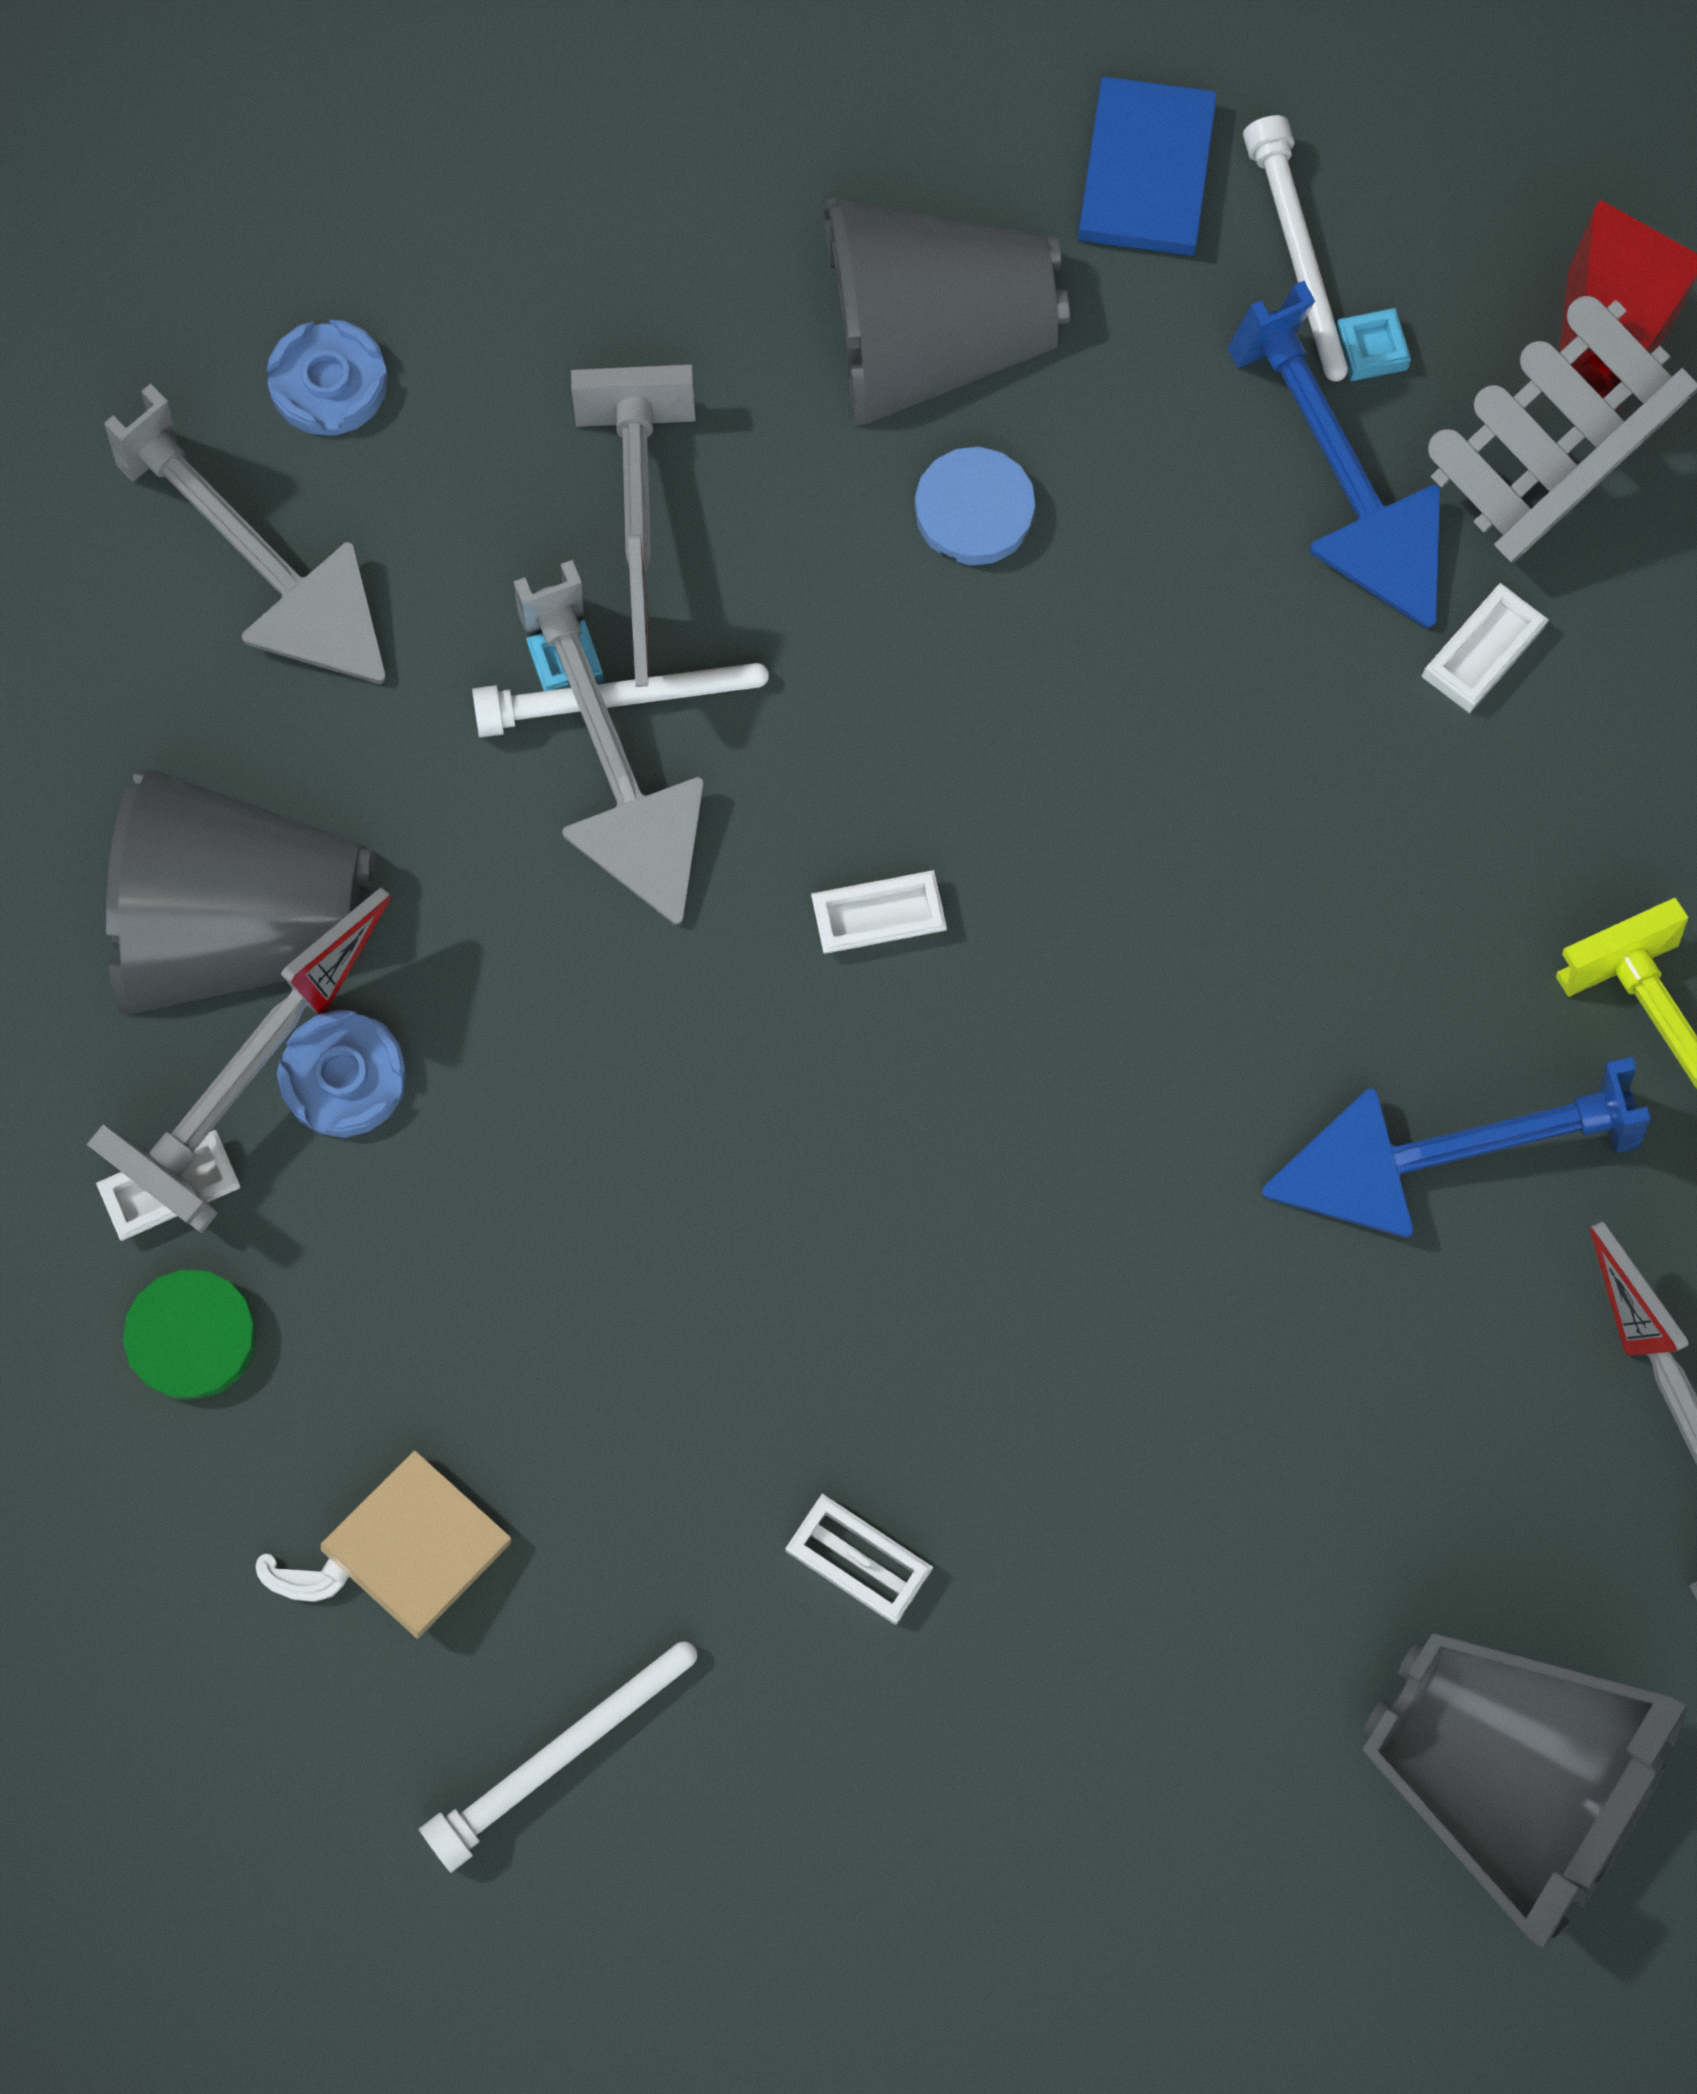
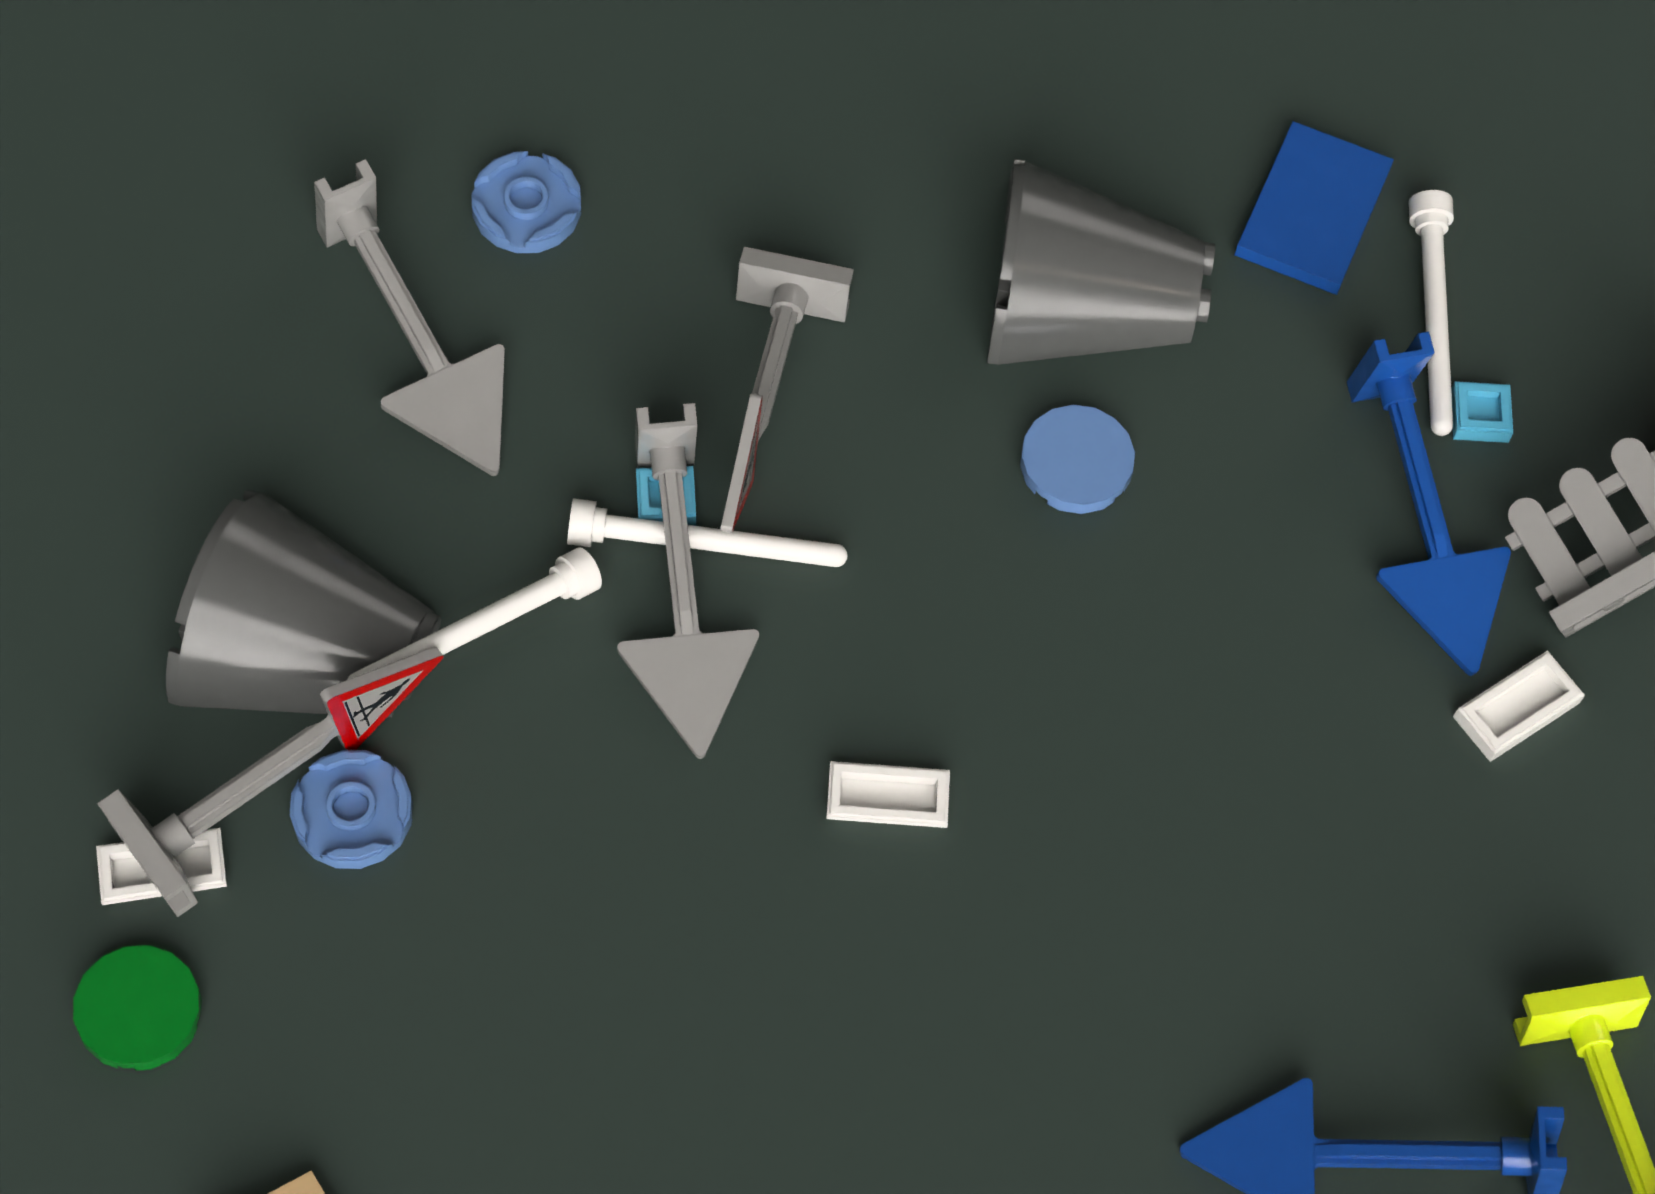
camera: 10 degrees right, 10 degrees down
(494, 771) = (572, 576): none -> white piece

